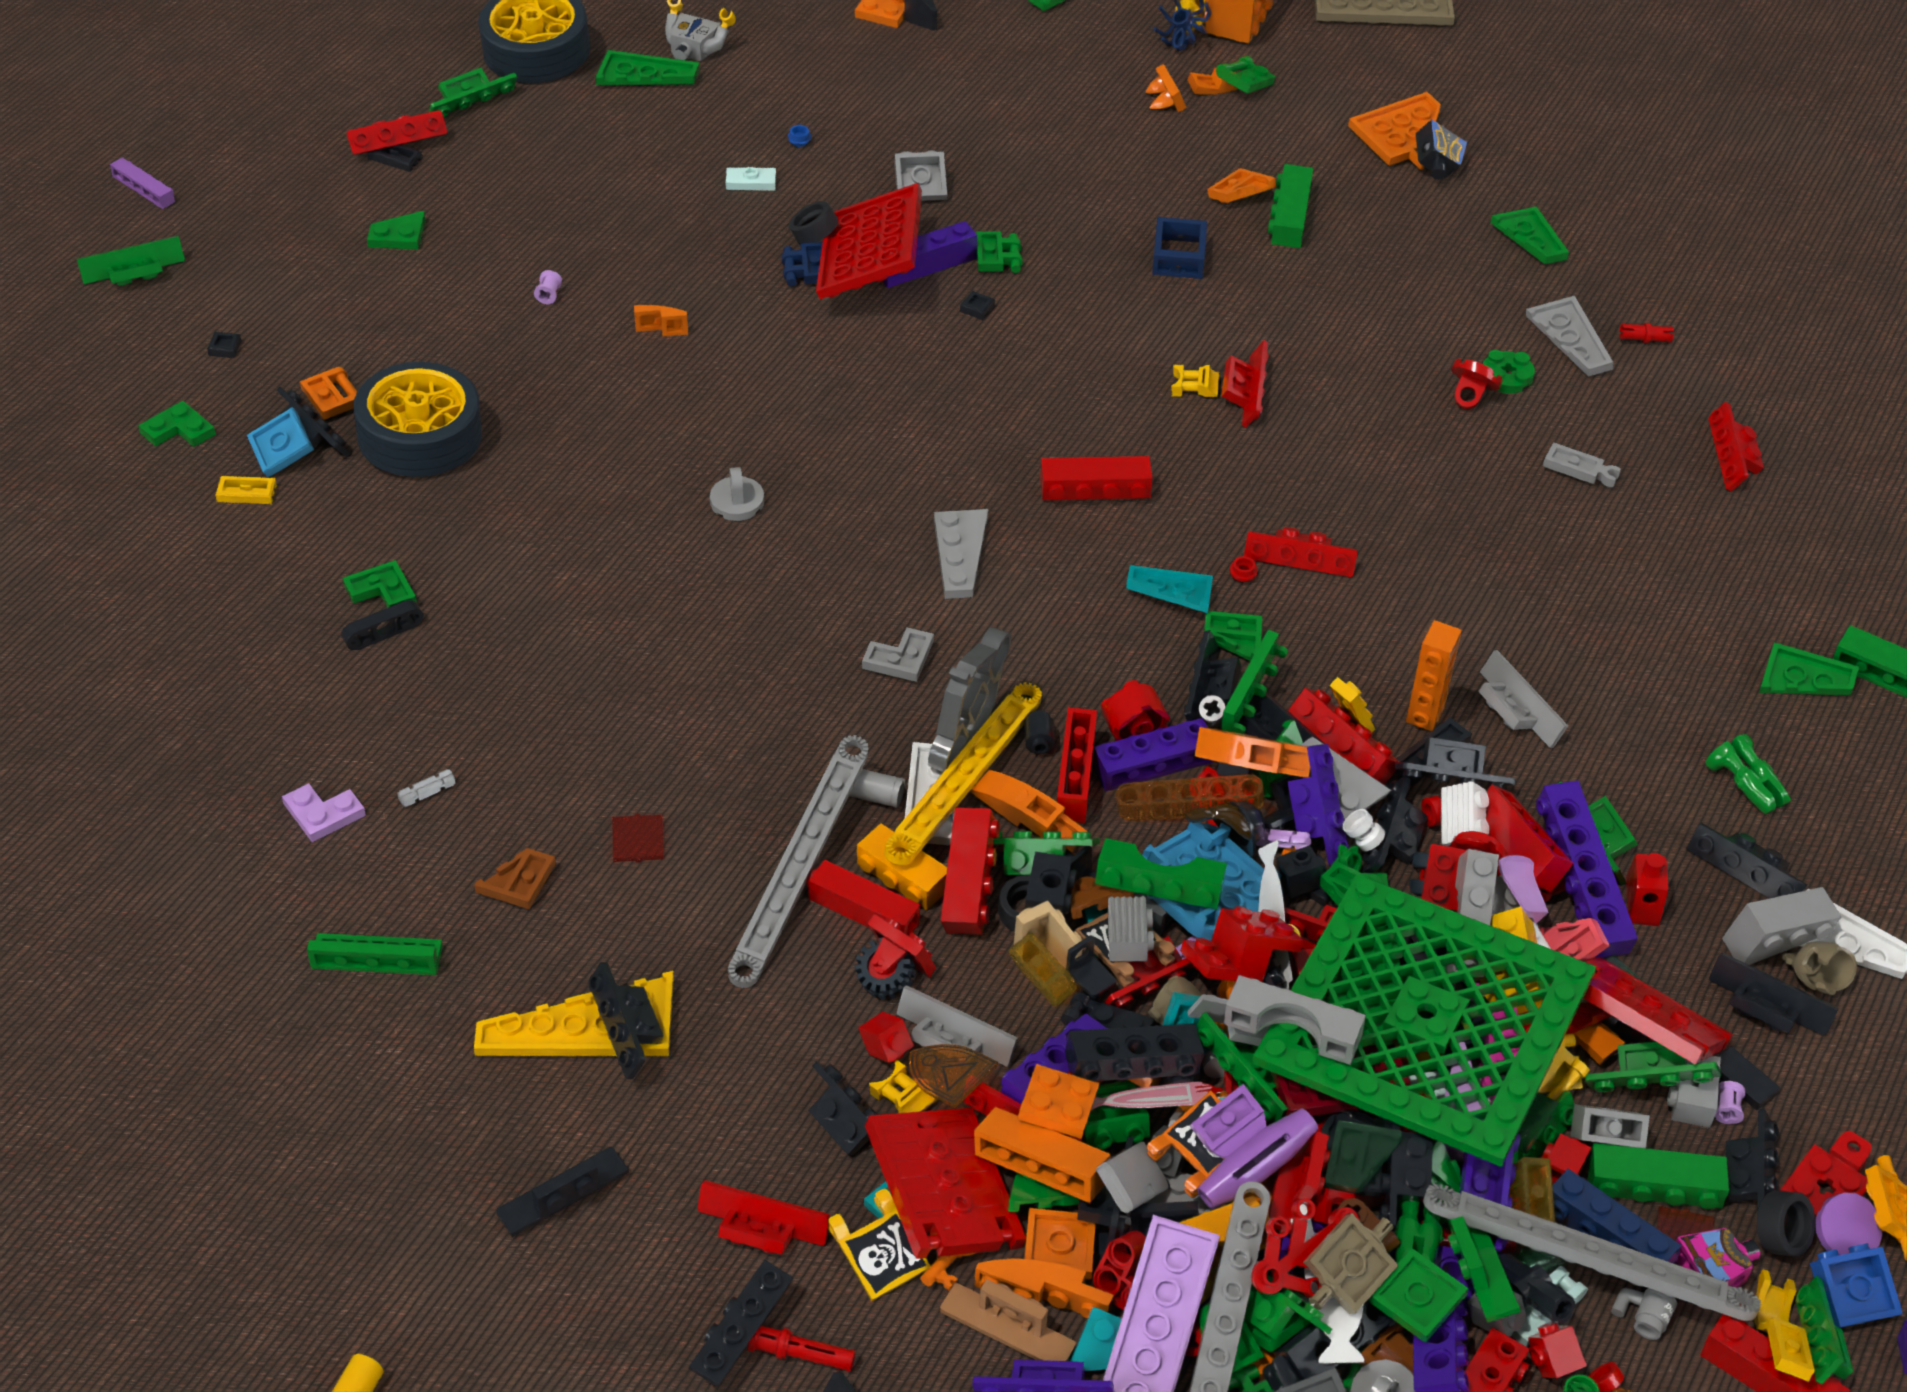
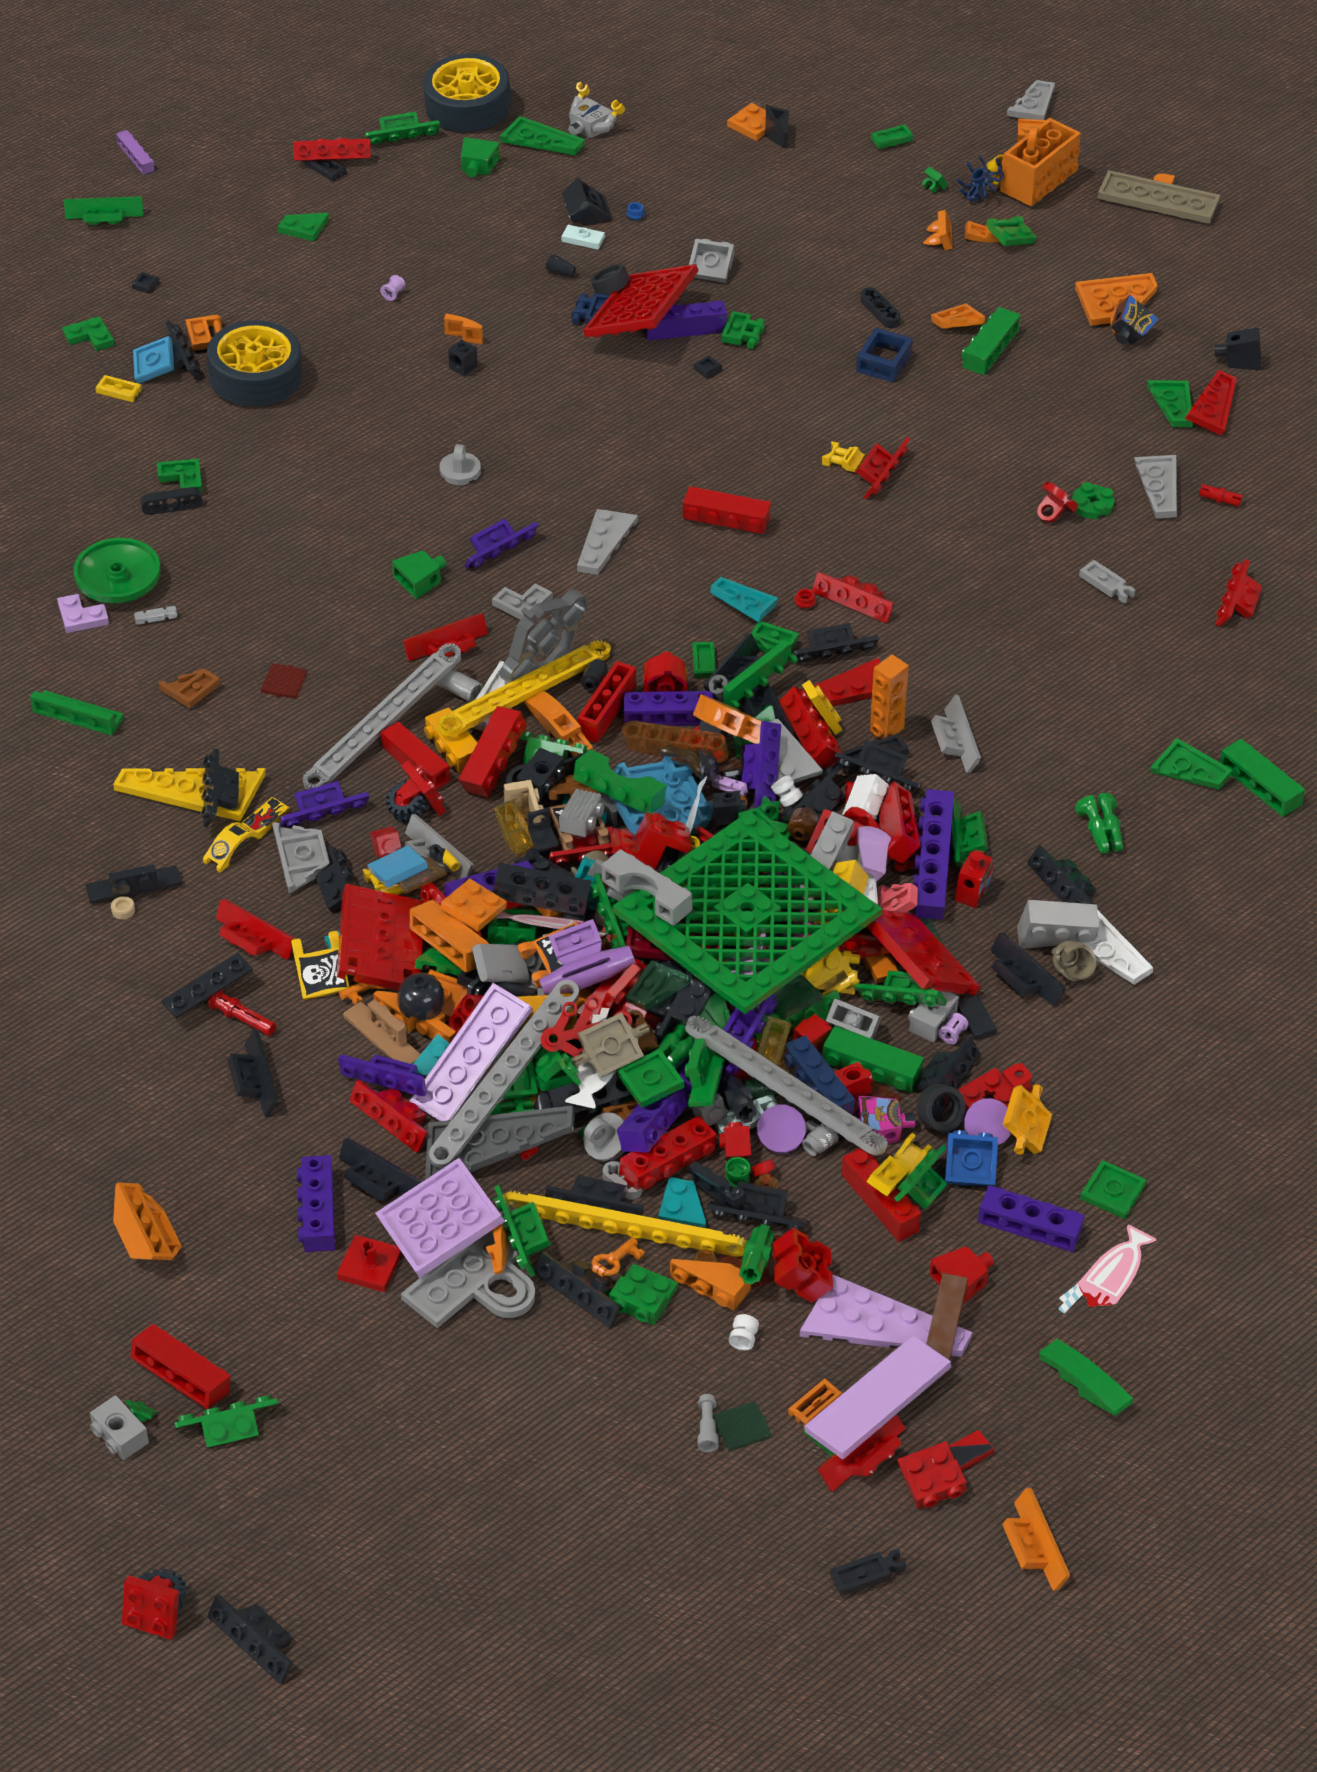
camera: 20 degrees right, 0 degrees up
(351, 738) = (117, 570): none -> green dish
(561, 1230) = (123, 908): none -> tan tile
(580, 106) = (479, 156): none -> green torso
(677, 356) = (462, 357): none -> black brick
(679, 1073) = (254, 826): none -> yellow piece
(736, 139) = (586, 204): none -> black slope
(742, 219) = (560, 266): none -> black cone
(749, 648) = (418, 572): none -> green torso
(767, 998) = (322, 801): none -> dark purple bracket
(775, 1084) = (301, 854): none -> light grey wing
(827, 579) = (495, 539): none -> dark purple bracket
(827, 729) = (459, 633): none -> red bracket
(922, 1069) = (397, 866): none -> dark azure tile
(973, 1037) = (444, 856): none -> arm
(1046, 1257) = (420, 996): none -> black cylinder
(1128, 31) = (934, 178): none -> green tile
(1156, 200) = (873, 298): none -> black beam
(1161, 676) = (703, 659): none -> green tile
(1309, 613) = (833, 640): none -> black bracket
(1362, 663) = (850, 685): none -> red wing
(1403, 869) = (802, 824): none -> reddish brown head
(1577, 158) = (1241, 349): none -> black torso
(1579, 227) = (1214, 403): none -> red wing
(1602, 1313) = (781, 1129): none -> medium lavender tile
(1660, 1205) = (856, 1079): none -> red brick

